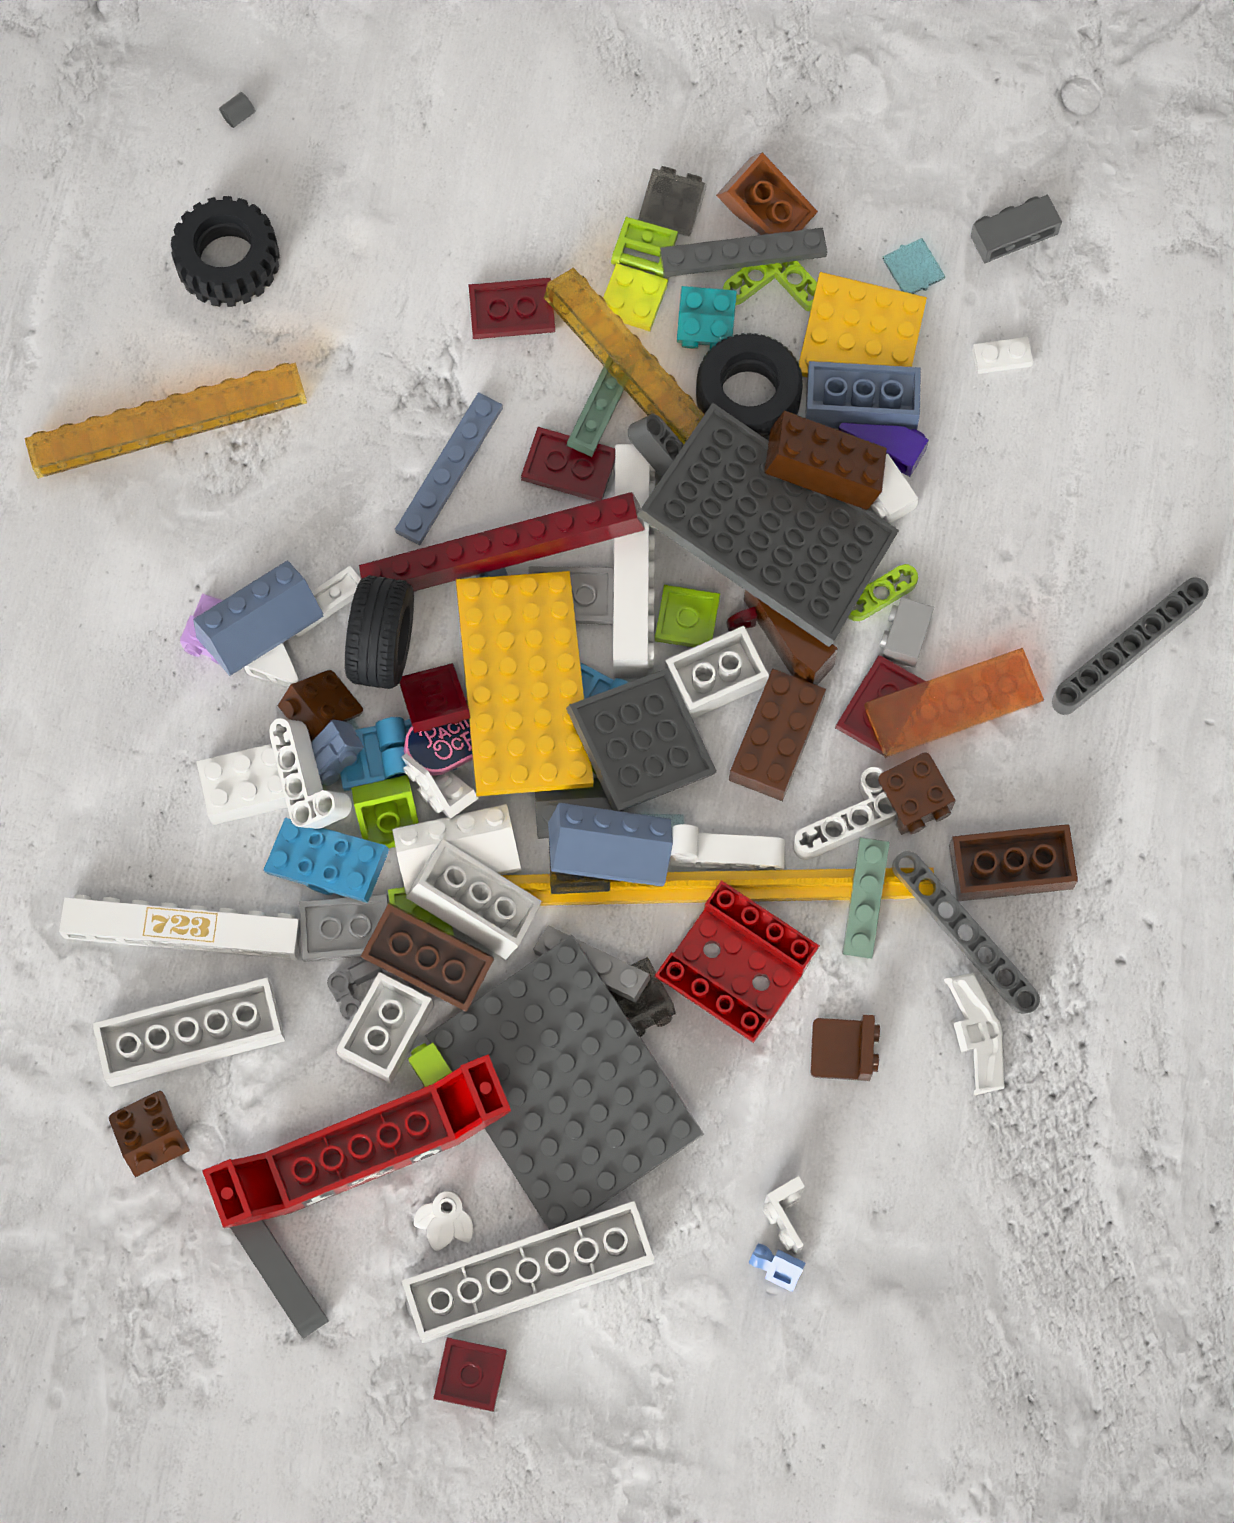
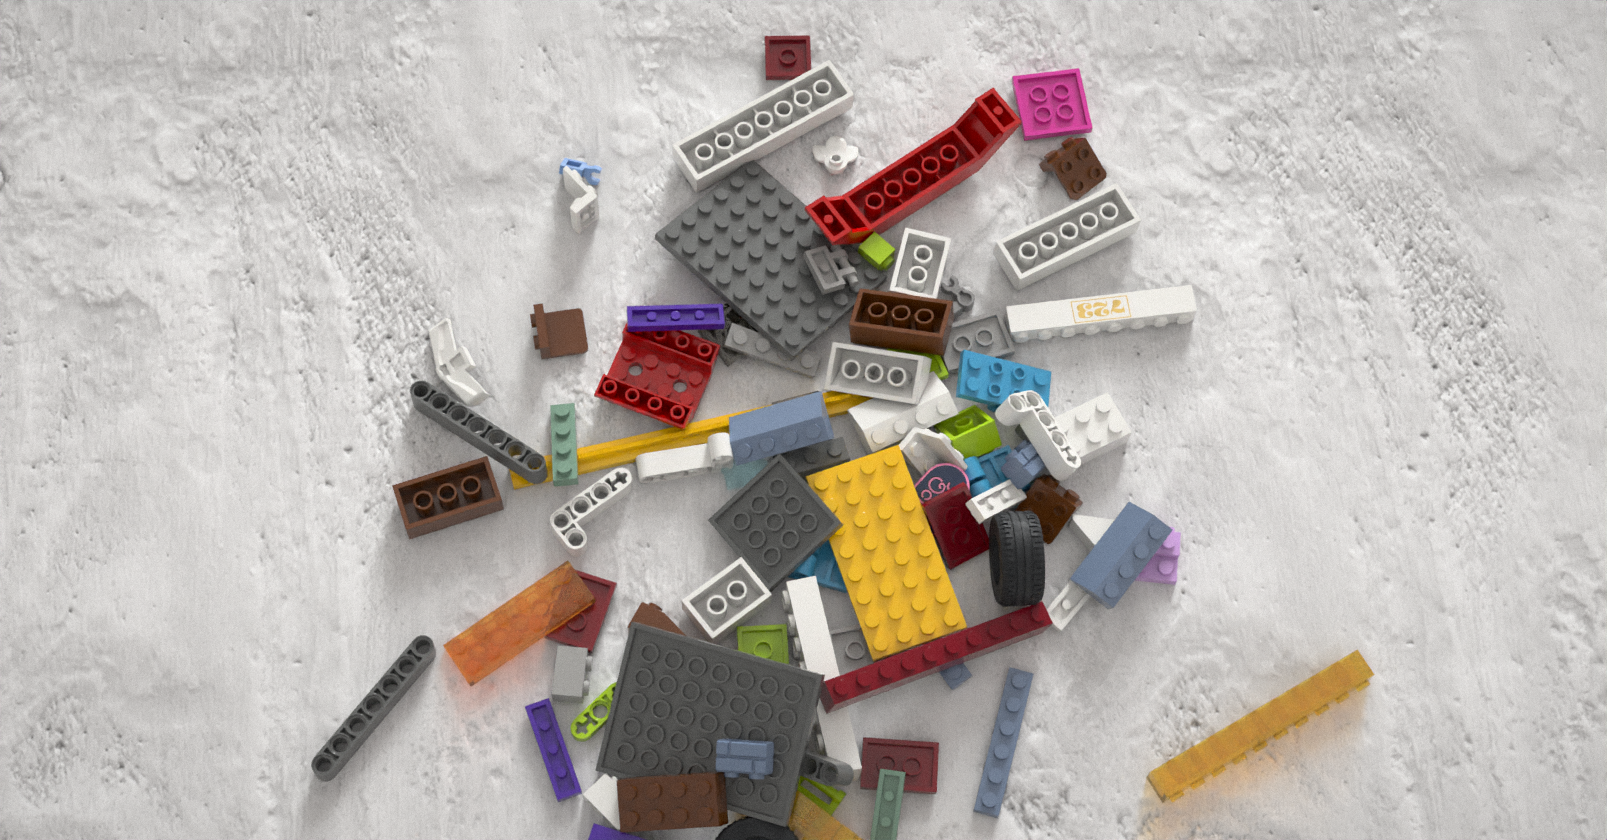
camera: 160 degrees right, 5 degrees down
(146, 1229) = (1051, 104): none -> dark pink plate
(280, 1277) = (937, 87): dark grey beam -> none
(383, 705) = (995, 501): none -> white plate
(502, 1038) = (825, 271): none -> light grey plate
(702, 1013) = (675, 317): none -> dark purple plate
(741, 466) = (745, 757): none -> sand blue brick
(777, 734) = (664, 561): reddish brown brick -> none
(917, 793) = (538, 536): reddish brown bracket -> none
(940, 561) = (553, 750): none -> dark purple plate

